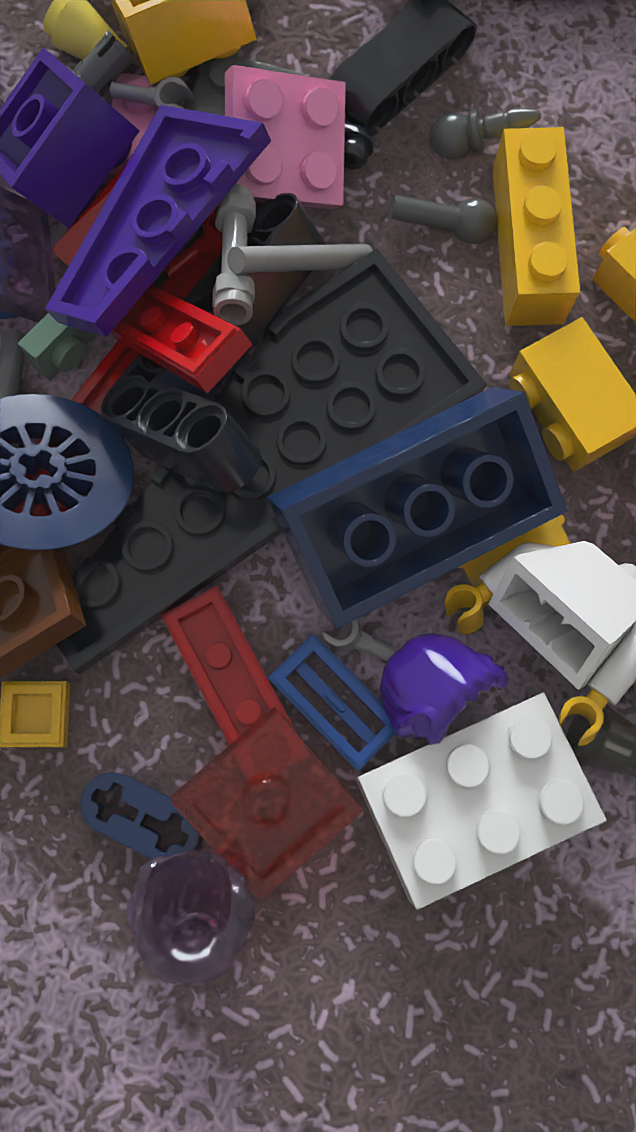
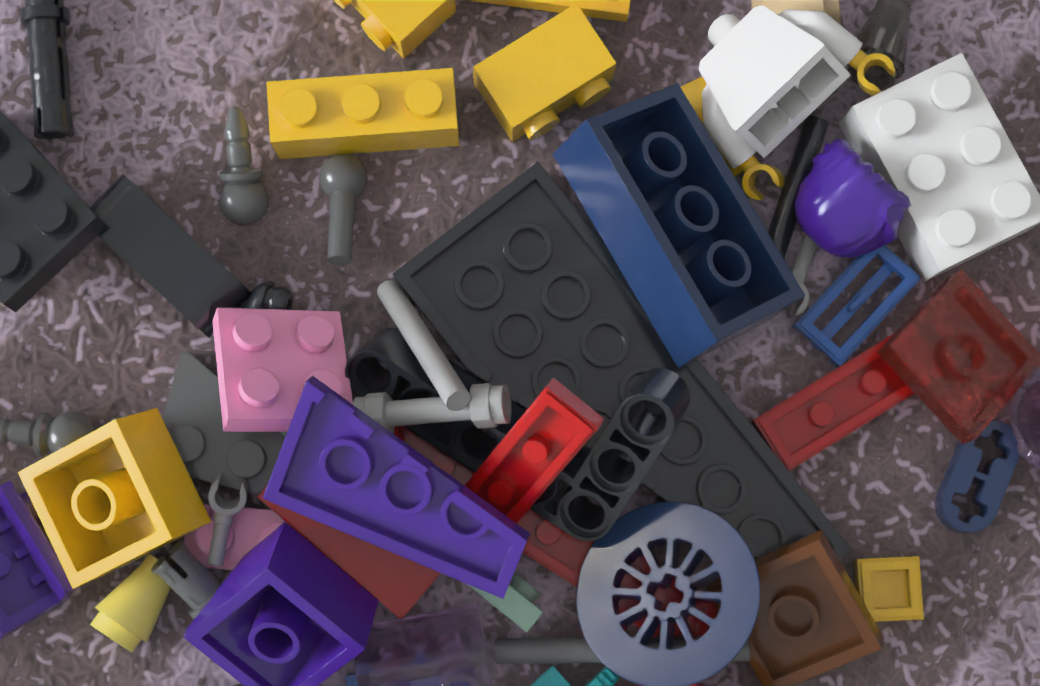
camera: 95 degrees left, 5 degrees up
(410, 626) = (807, 147): none -> black bar

